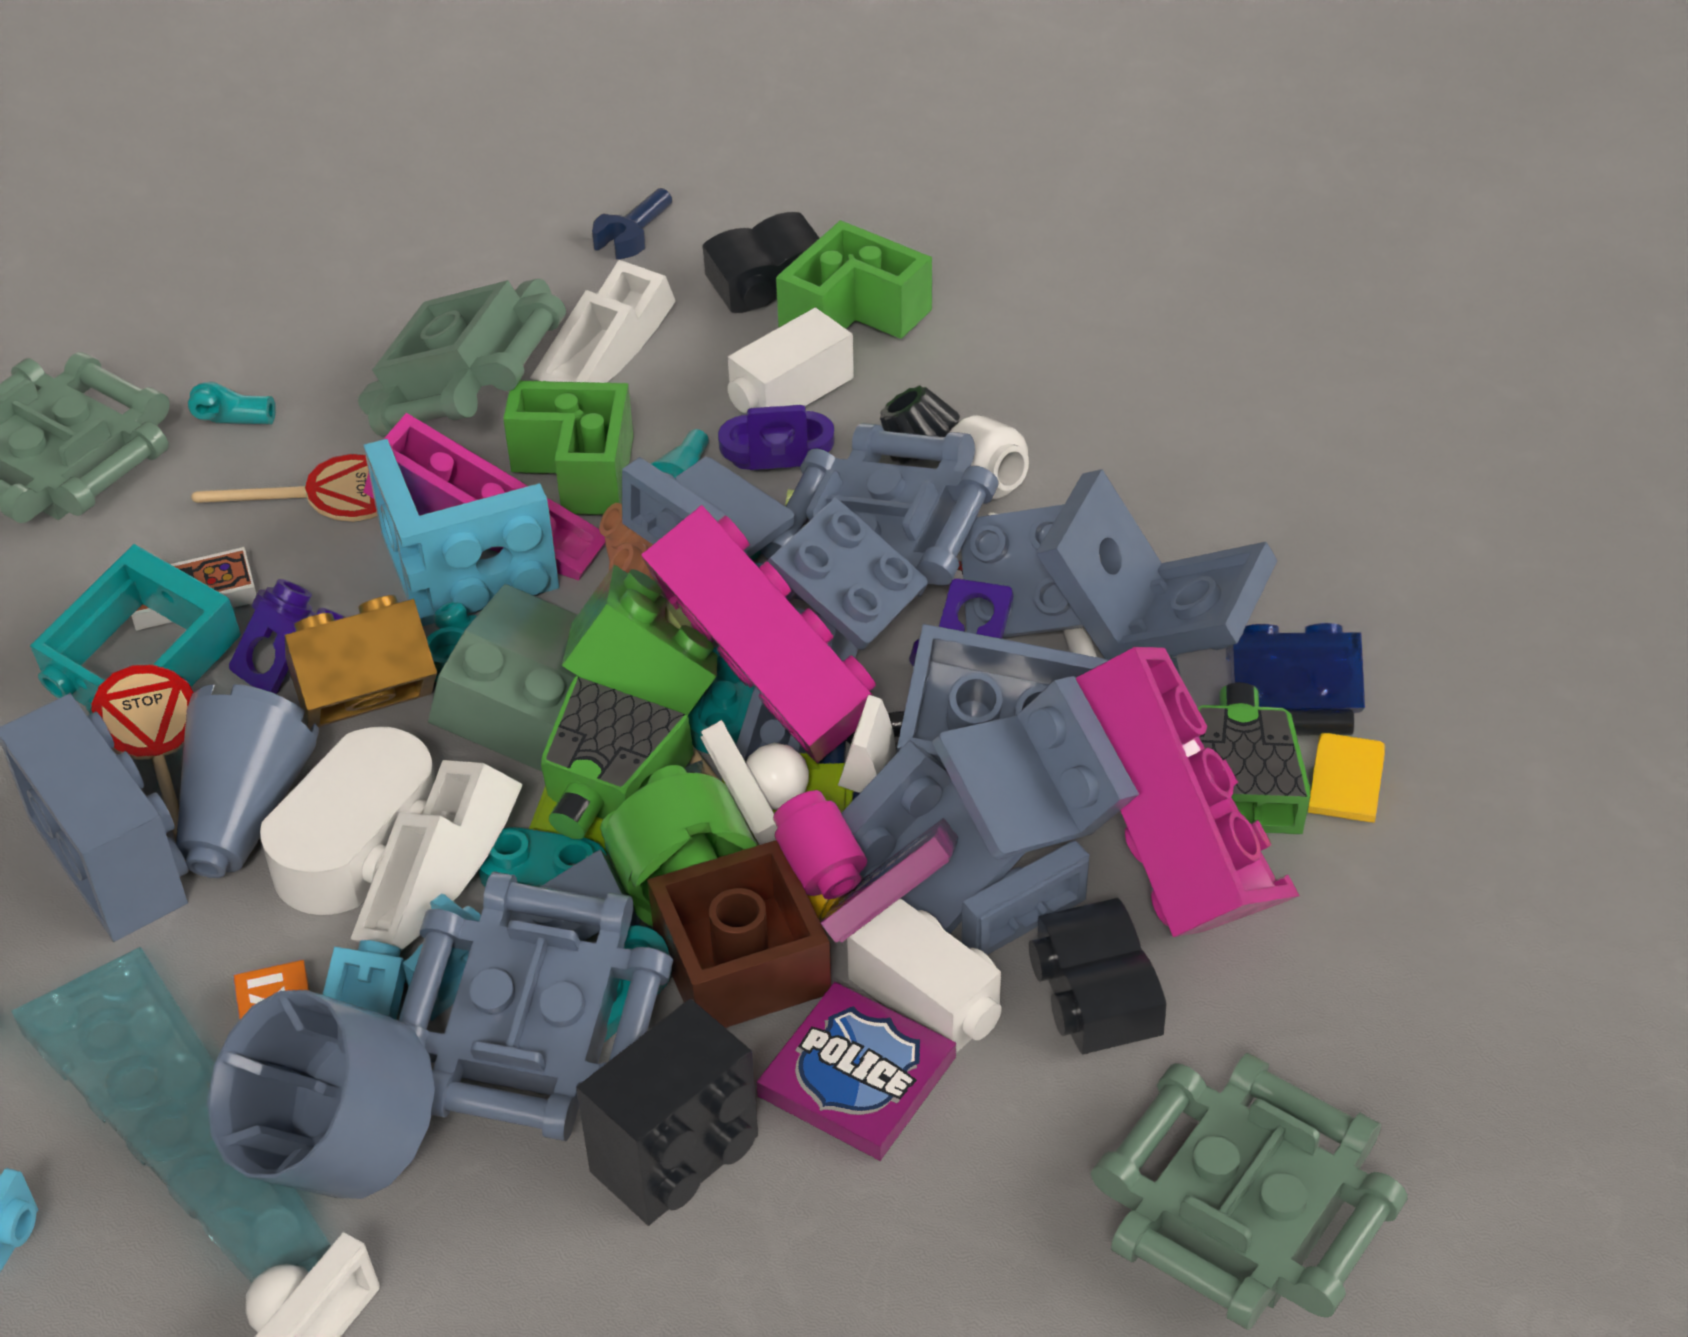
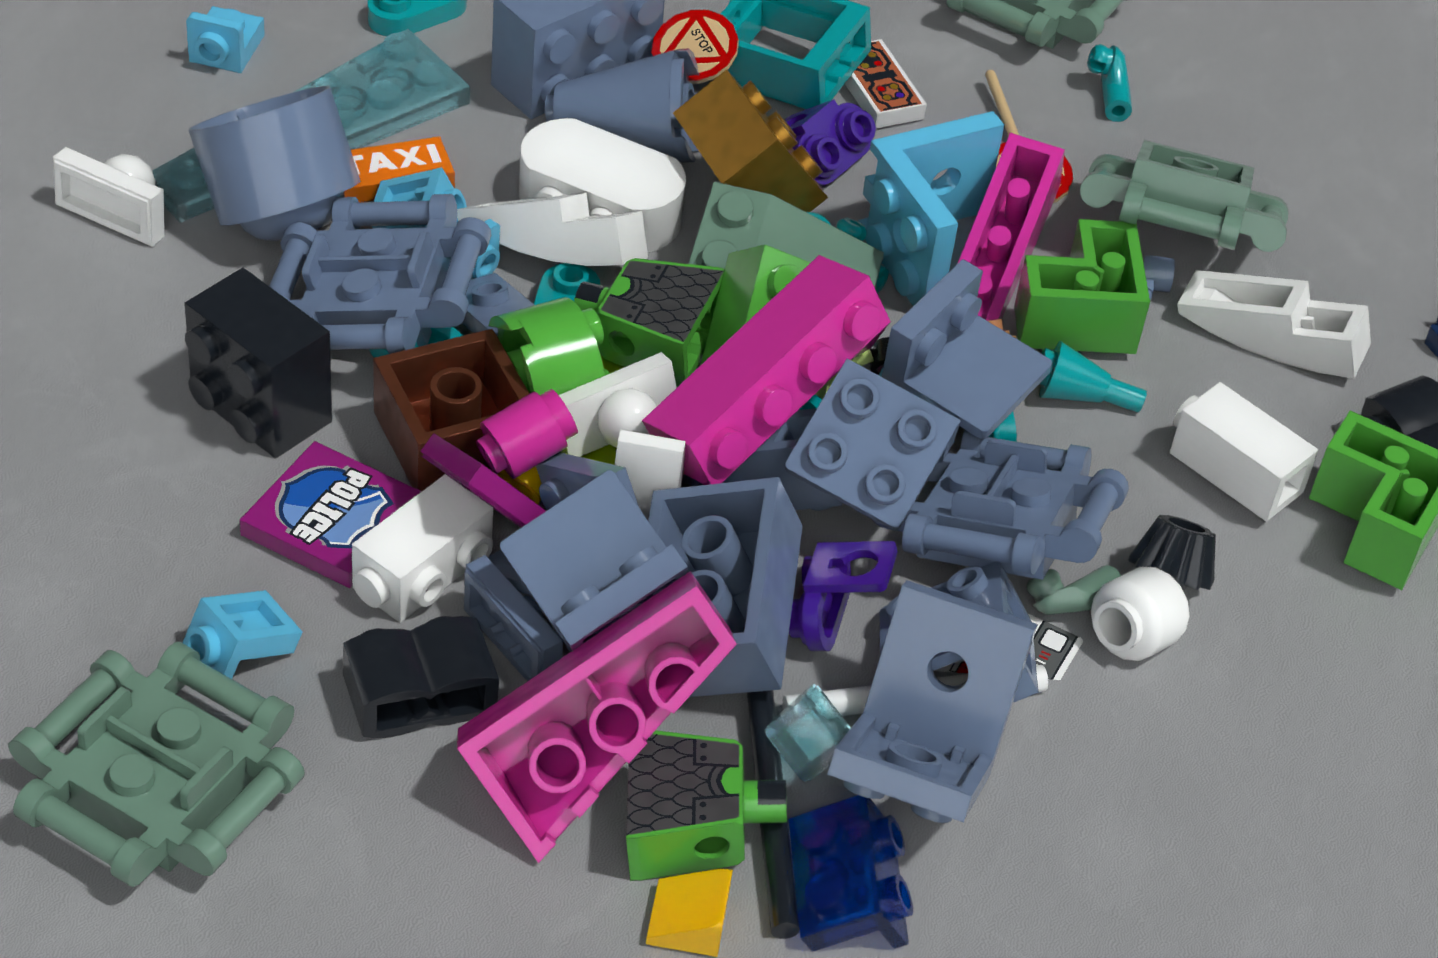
camera: 80 degrees right, 0 degrees up
(774, 437) = (1141, 448): dark purple bracket -> none
(1055, 1135) = (240, 629): none -> medium azure bracket

